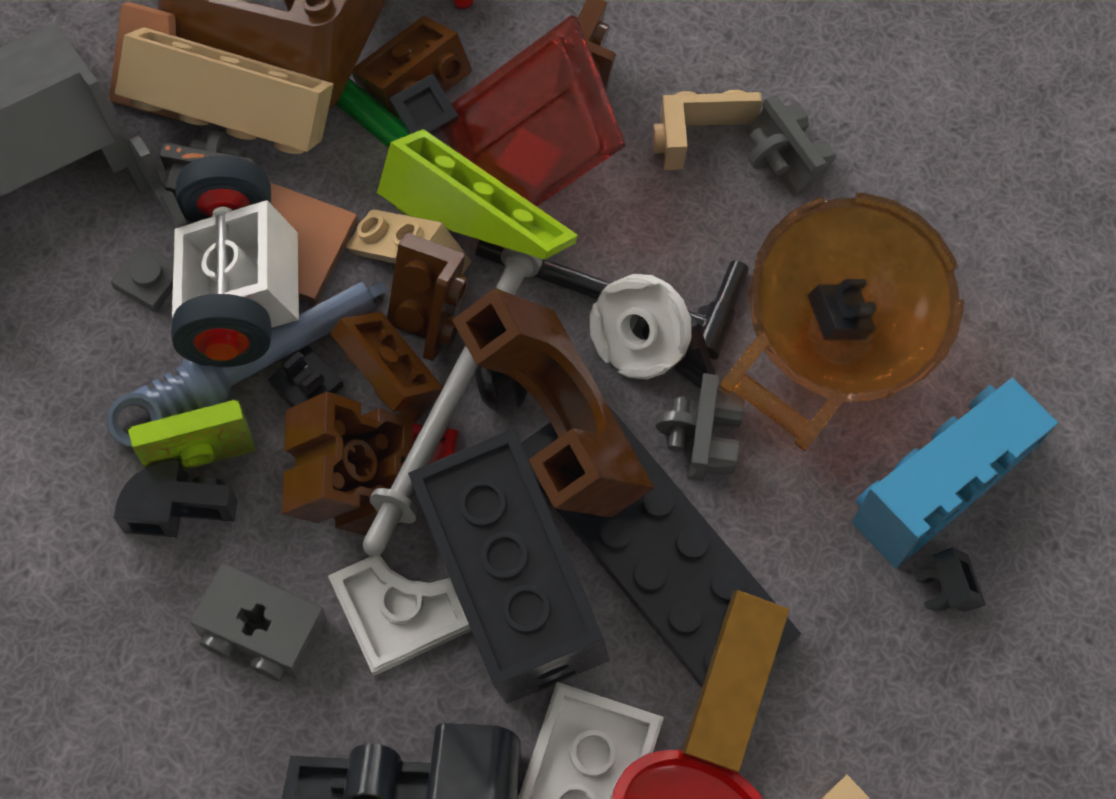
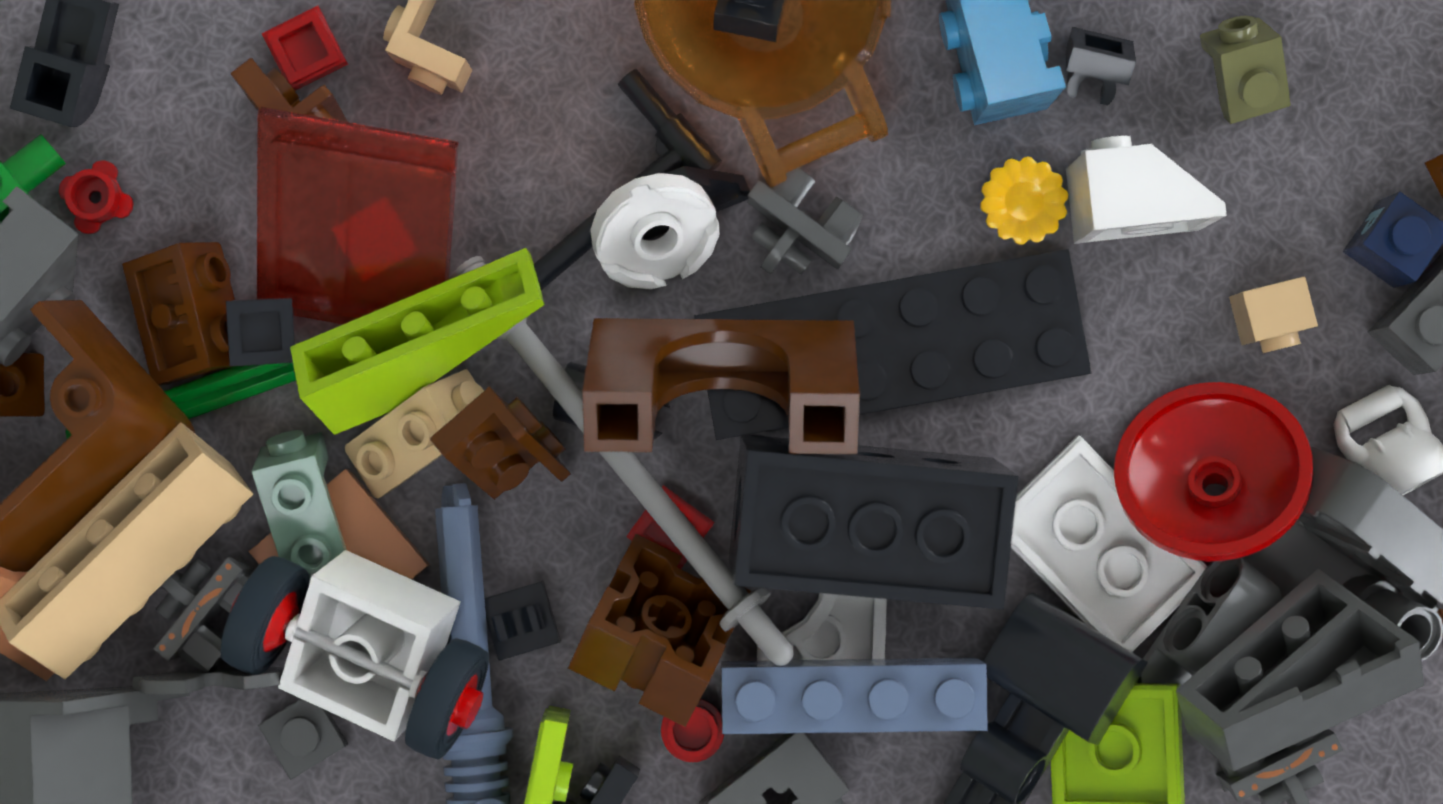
camera: 55 degrees left, 20 degrees up
(283, 541) = (699, 738): none -> red plate
(318, 185) = (298, 500): none -> sand green bracket
(368, 633) = (854, 696): none -> sand blue brick
(387, 363) = (556, 528): reddish brown bracket -> none
(637, 59) = (305, 48): none -> red tile
(735, 681) = (1088, 346): pearl gold tile -> none
(817, 582) = (1024, 200): none -> yellow piece
(869, 649) = (1134, 193): none -> white slope
(1019, 699) = (1247, 67): none -> olive bracket

